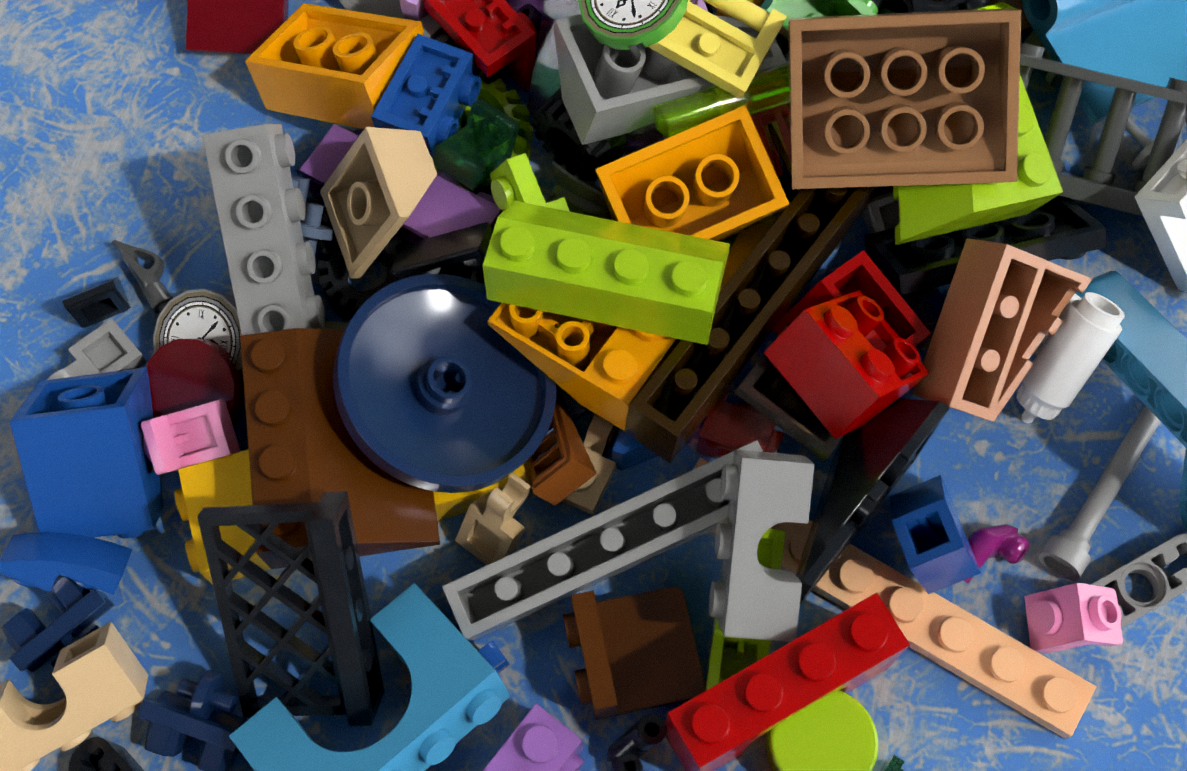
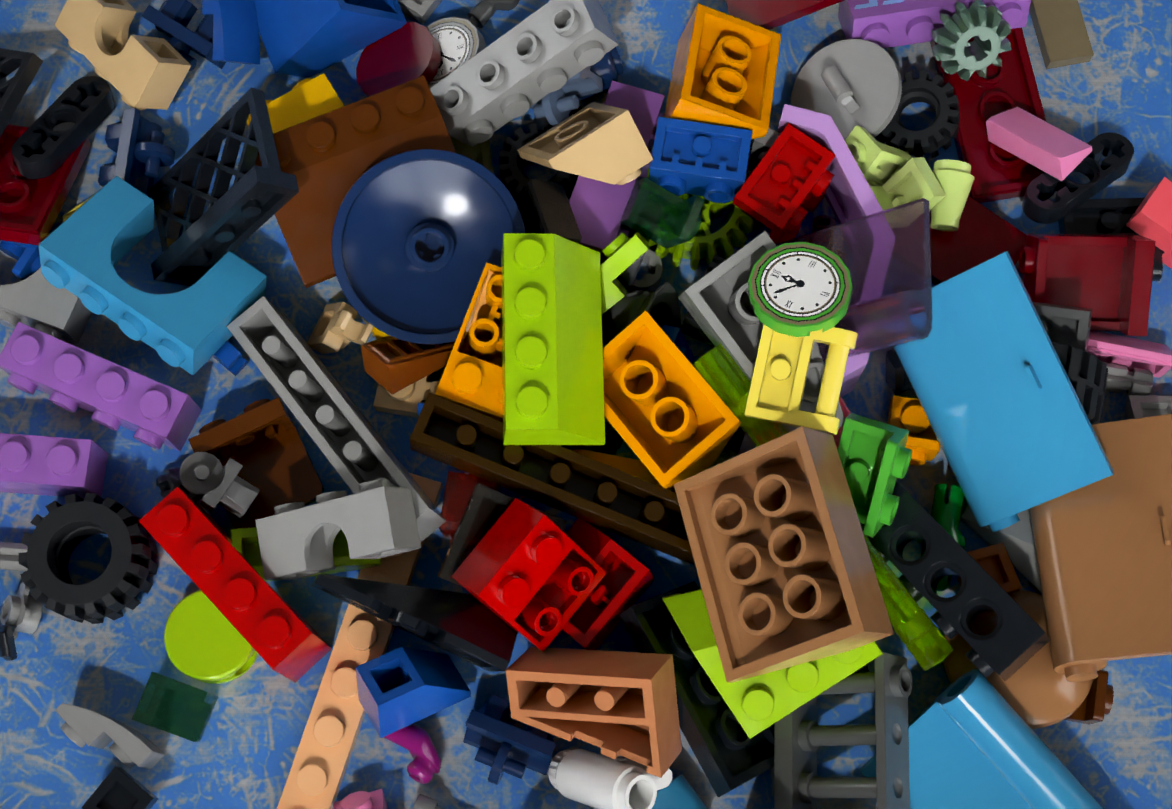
camera: 75 degrees right, 5 degrees up
(189, 436) = (349, 68): bright pink bracket -> none
(659, 681) = (204, 475): none -> flat silver hips
(1008, 452) = (504, 745): none -> dark blue hips

